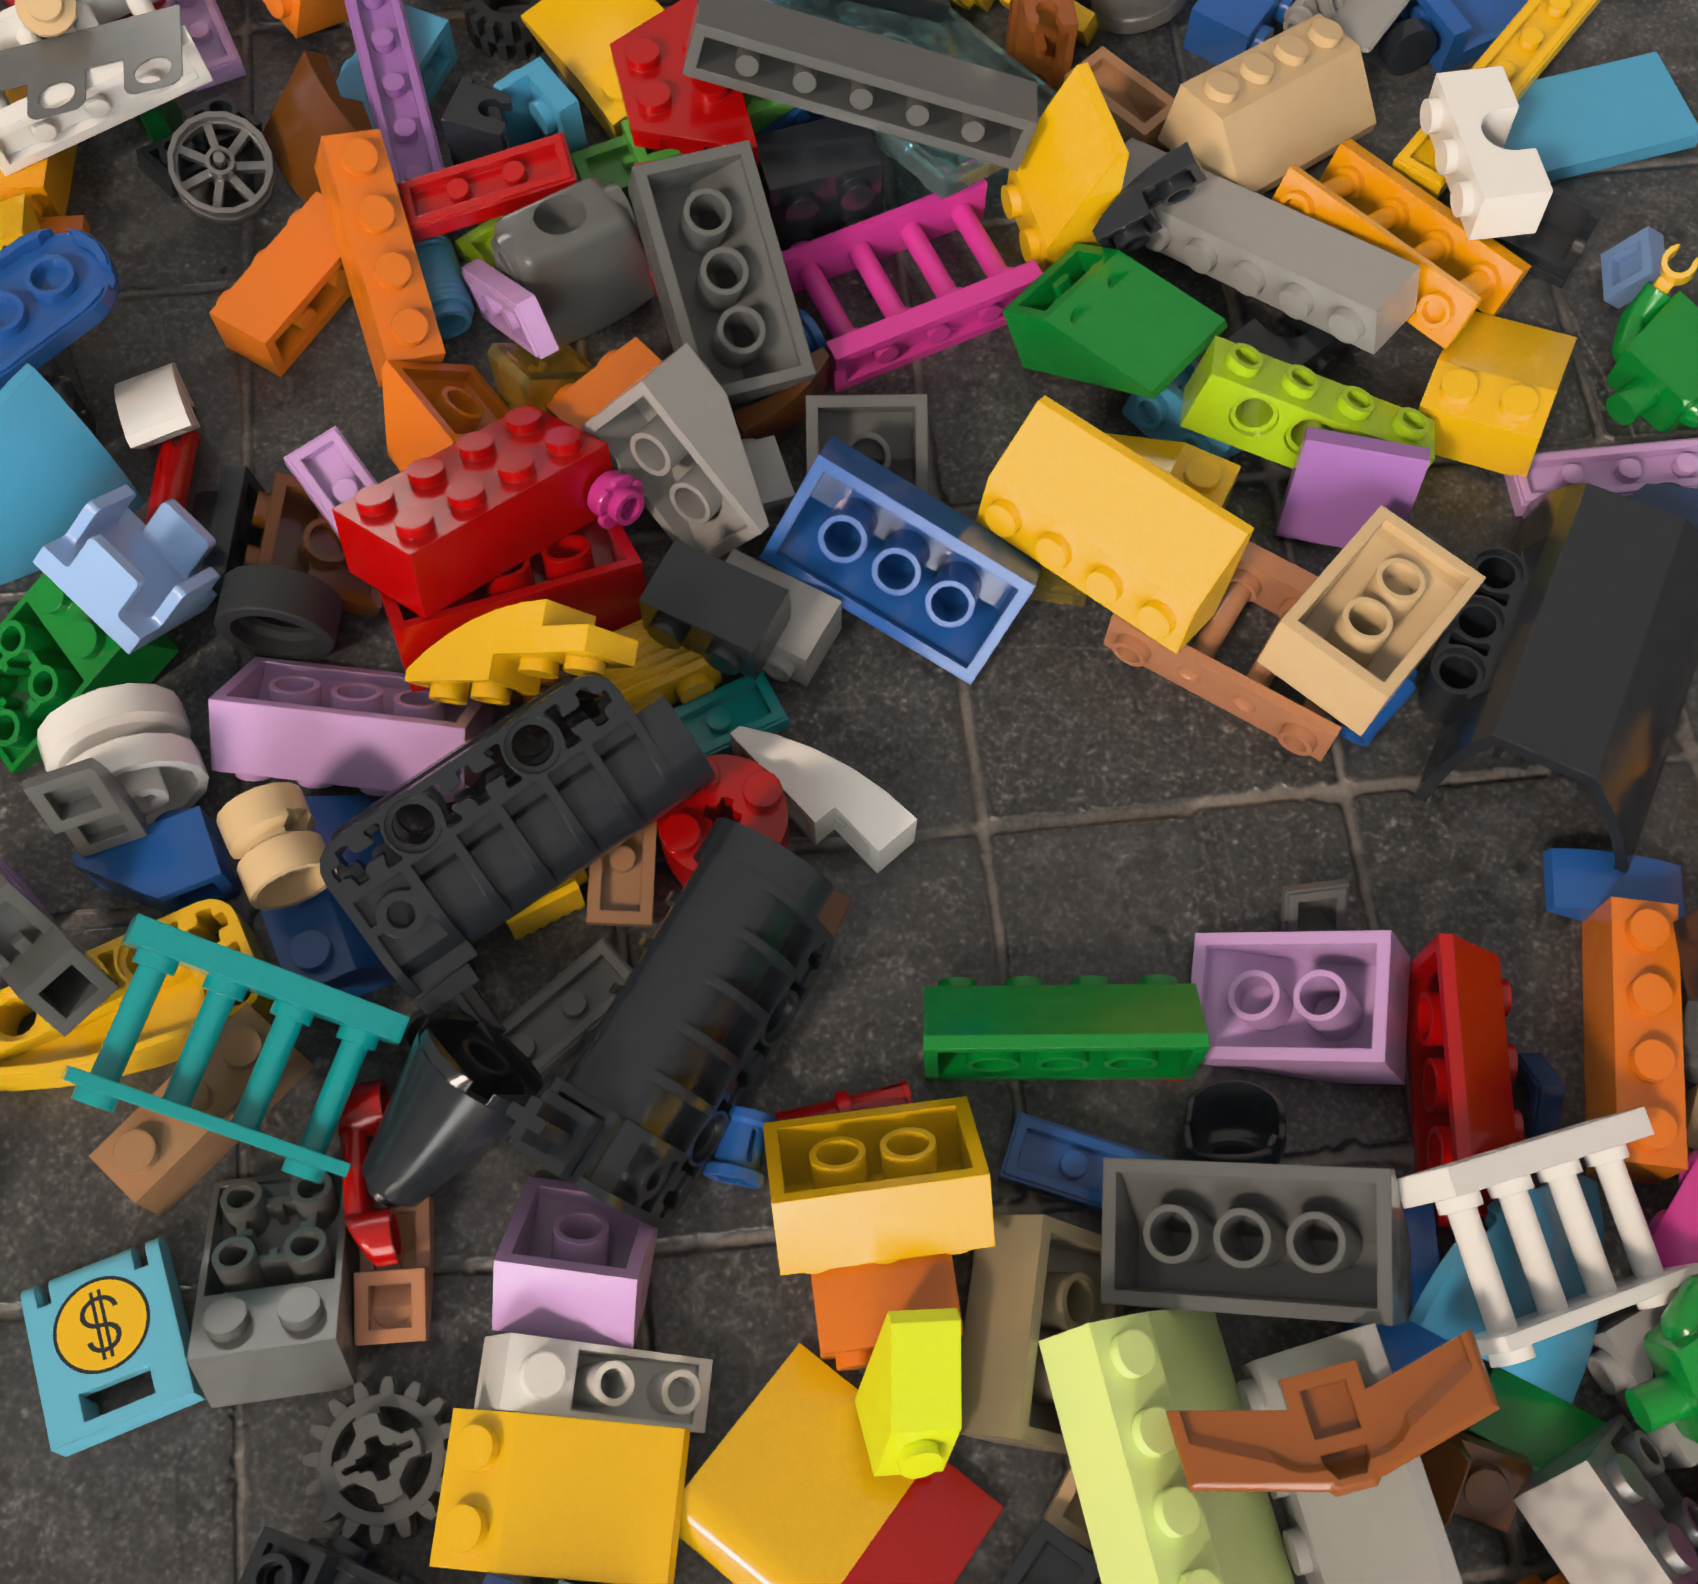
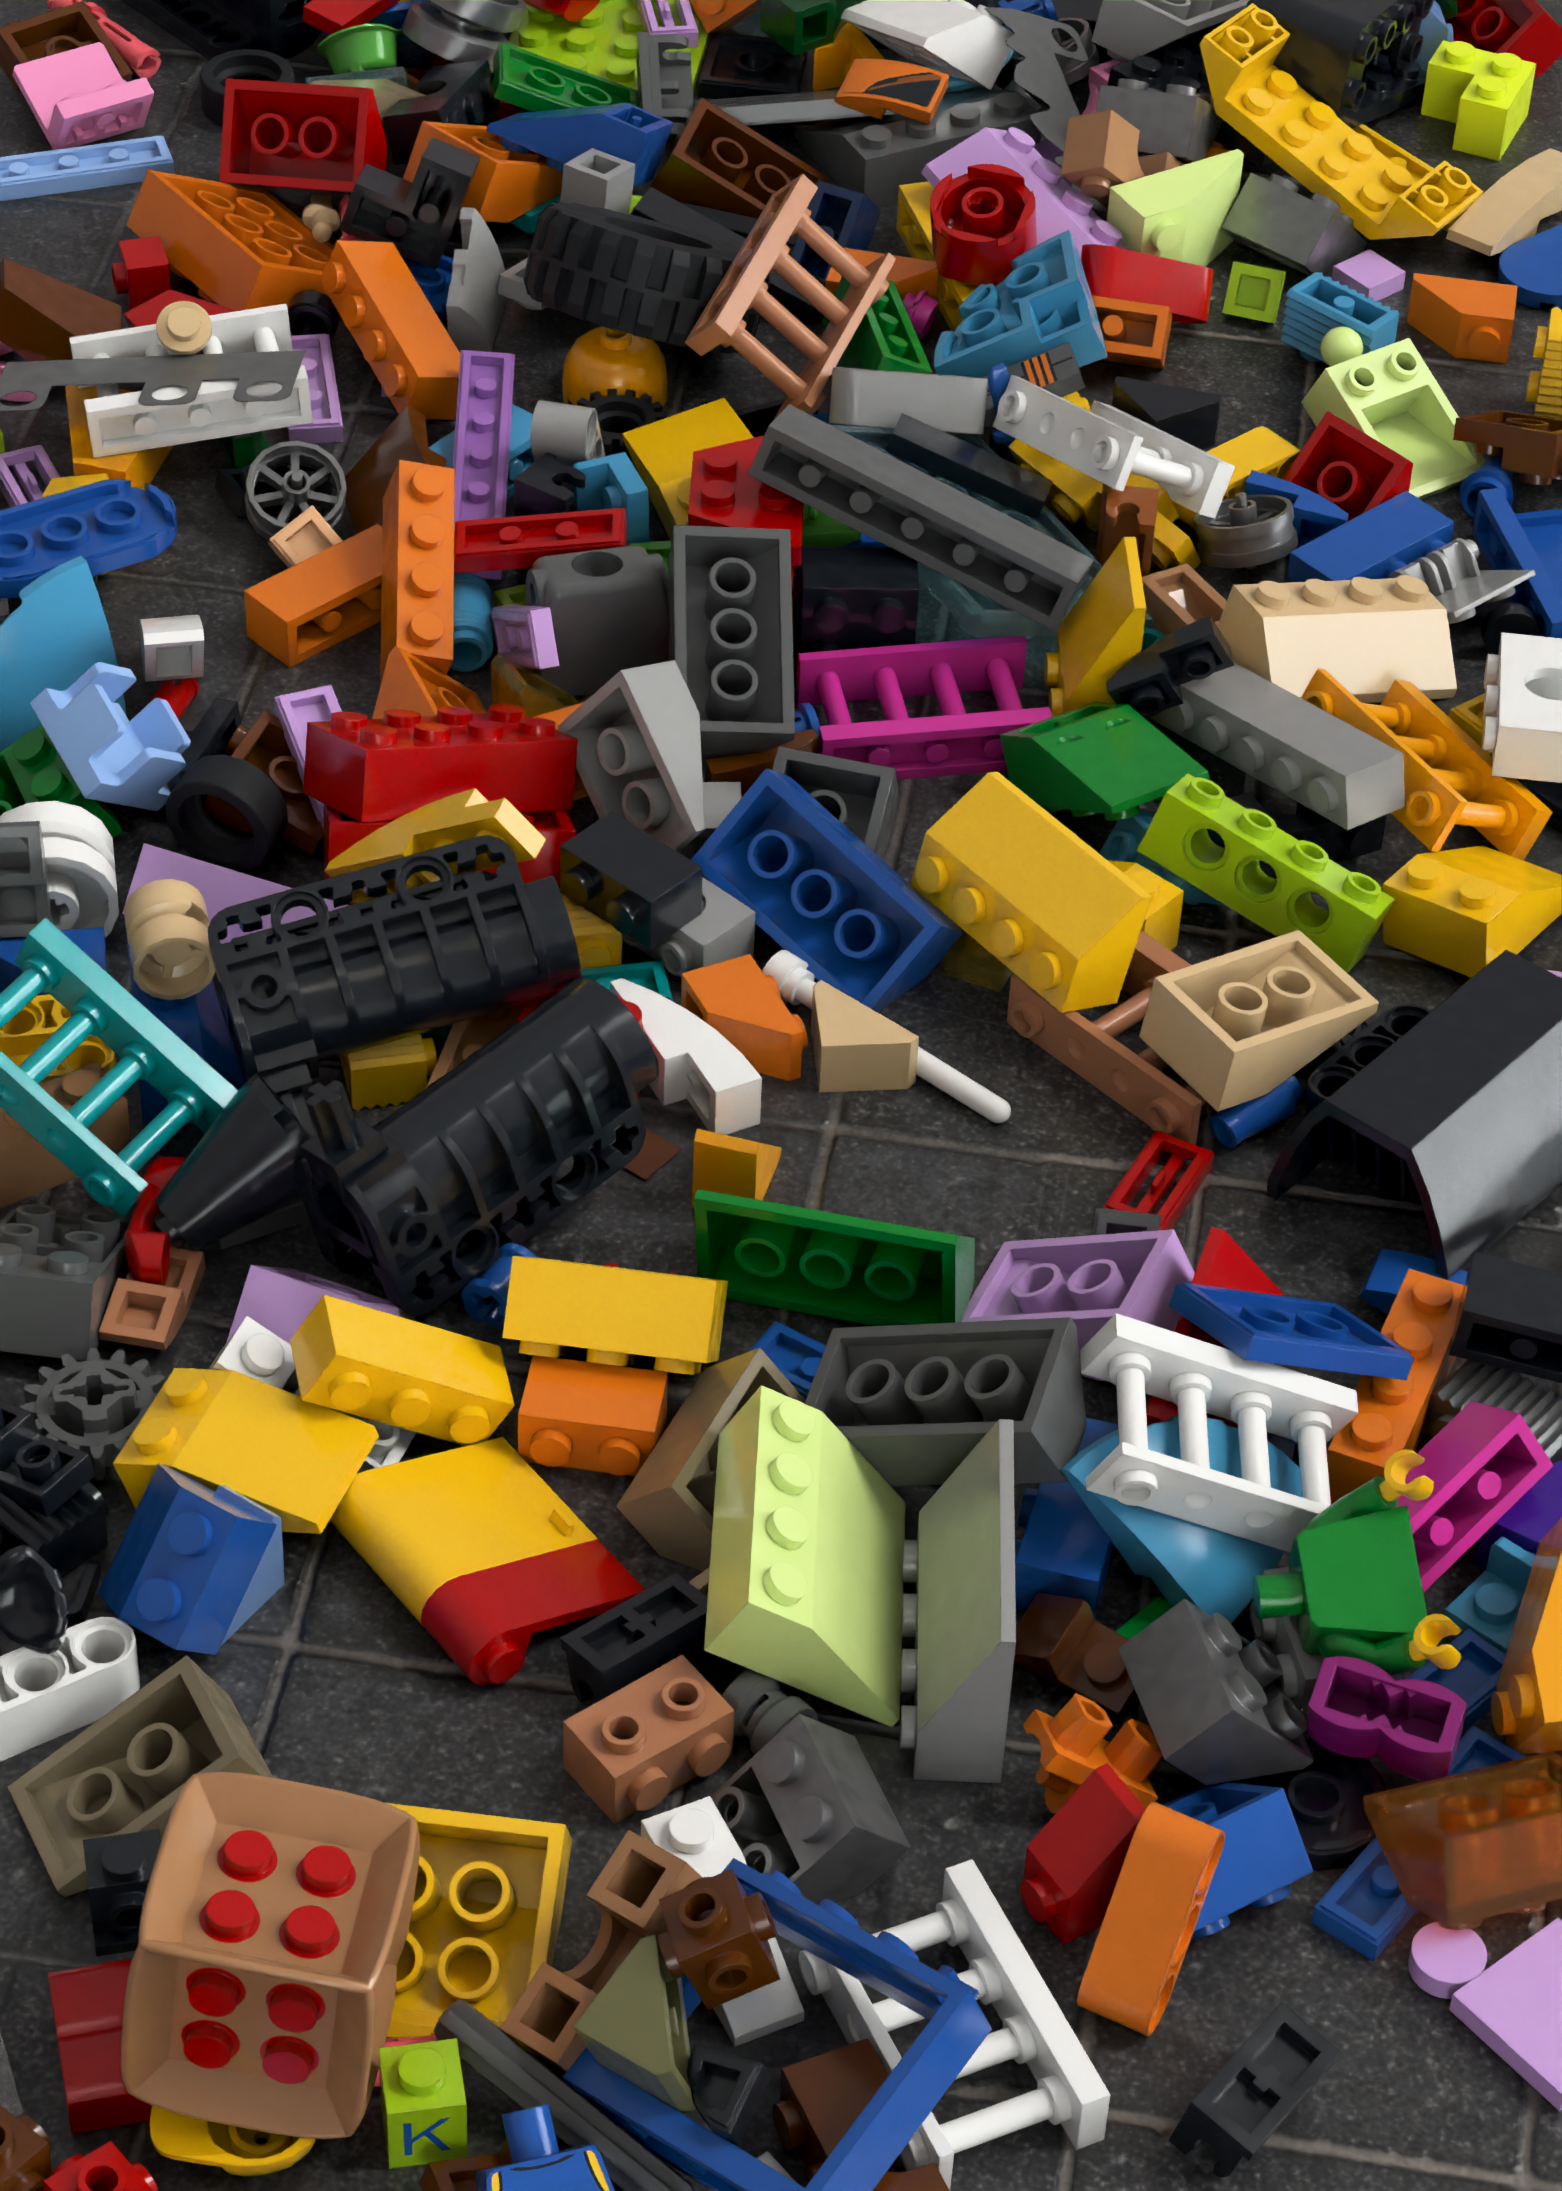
camera: 15 degrees right, 25 degrees down
(250, 224) = (303, 538): none -> light nougat tile
(475, 50) = (566, 432): none -> light grey beam
(616, 499) = (562, 784): dark pink plate -> none
(688, 1349) = (401, 1372): none -> yellow brick
(862, 726) = (748, 1013): none -> orange slope
(895, 662) = (797, 987): none -> white piece
(912, 1393) = (592, 1448): neon yellow slope -> none
(917, 921) = (732, 1165): none -> light orange slope
(979, 730) = (858, 1045): none -> tan slope
(1306, 869) = (1184, 1190): none -> red tile
(1334, 1429) = (948, 1472): dark orange plate -> none
(1344, 481) = (1279, 902): medium lavender tile -> none
(1563, 1059) = (1291, 1331): none -> blue tile

